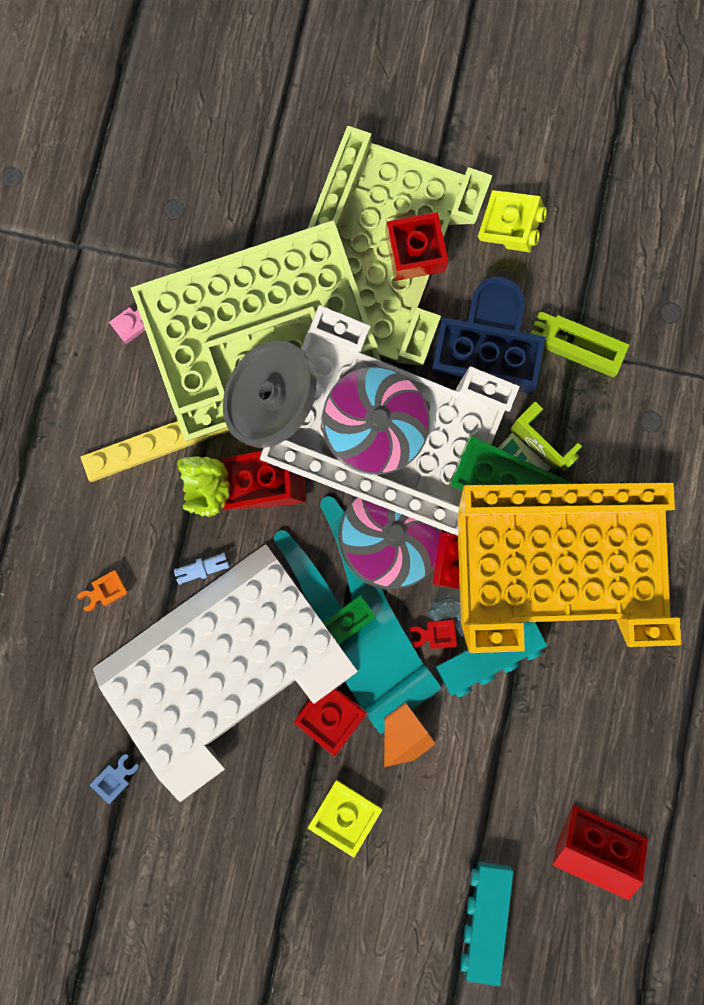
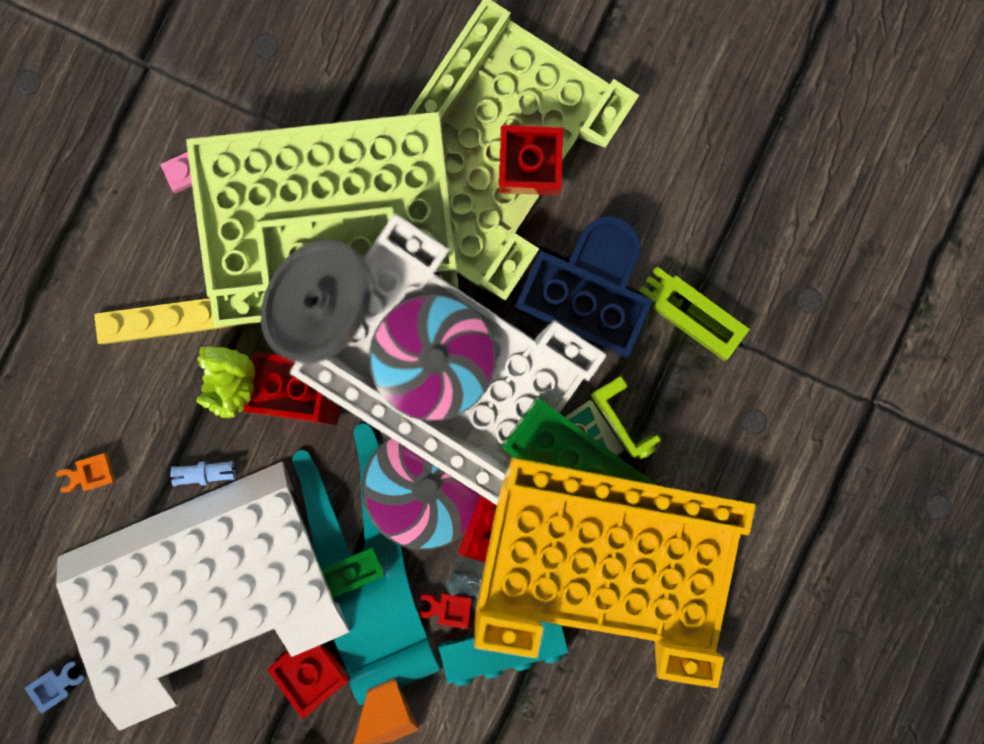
camera: 10 degrees right, 5 degrees up
(513, 220) = (652, 151): neon yellow plate -> none

